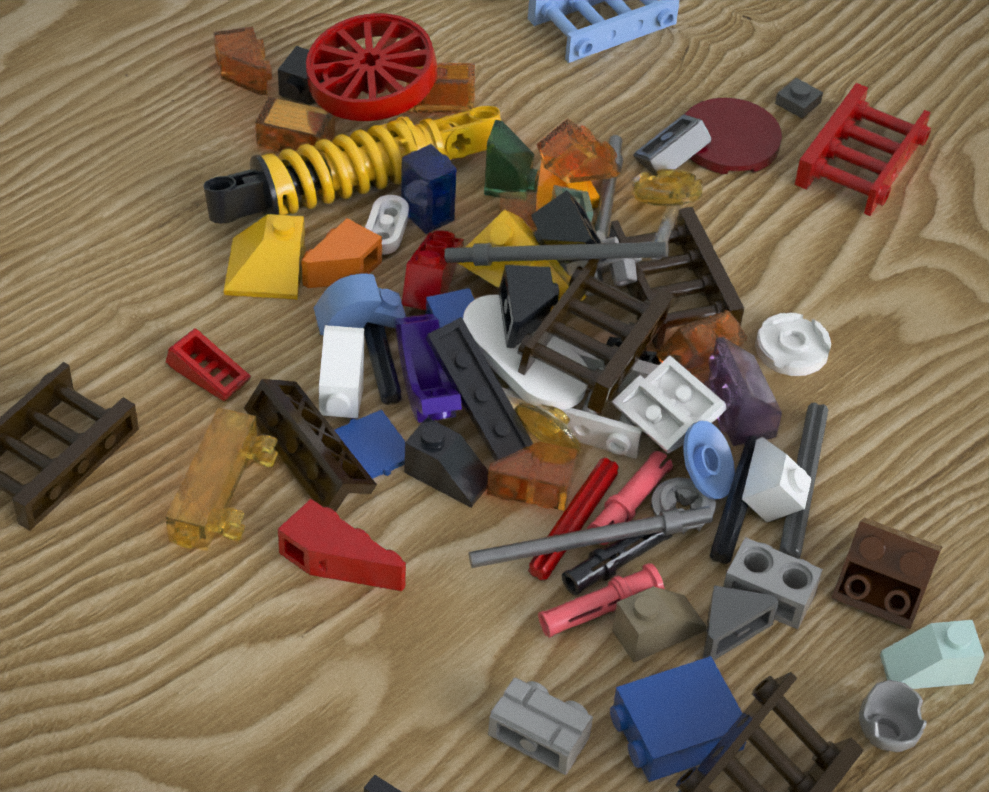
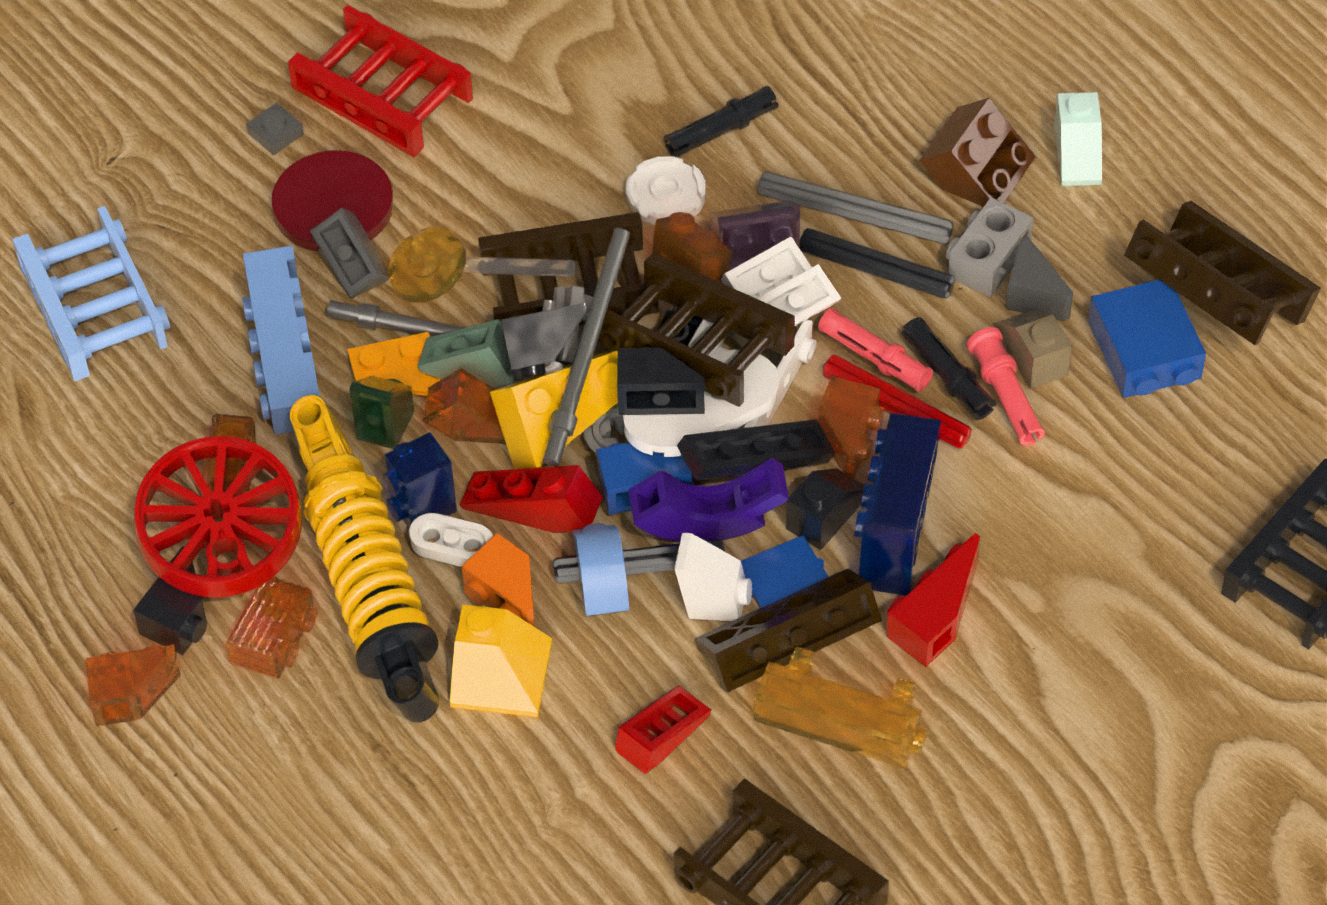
camera: 80 degrees left, 5 degrees up
(446, 507) = (896, 501): none -> clear blue wedge
(540, 724) = (1154, 445): light grey brick -> none
(548, 425) = (798, 394): clear yellow dish -> none
(577, 155) = (386, 331): clear orange slope -> none
(590, 96) = (279, 334): none -> medium blue wedge
(668, 522) = (925, 314): flat silver bar -> none
(681, 491) = (892, 297): light grey gear -> none
(708, 460) = (846, 276): medium blue dish -> none
(775, 483) = (871, 221): white slope -> none
(892, 384) = (734, 115): none -> black pin
(892, 716) = (1147, 181): light grey hair -> none

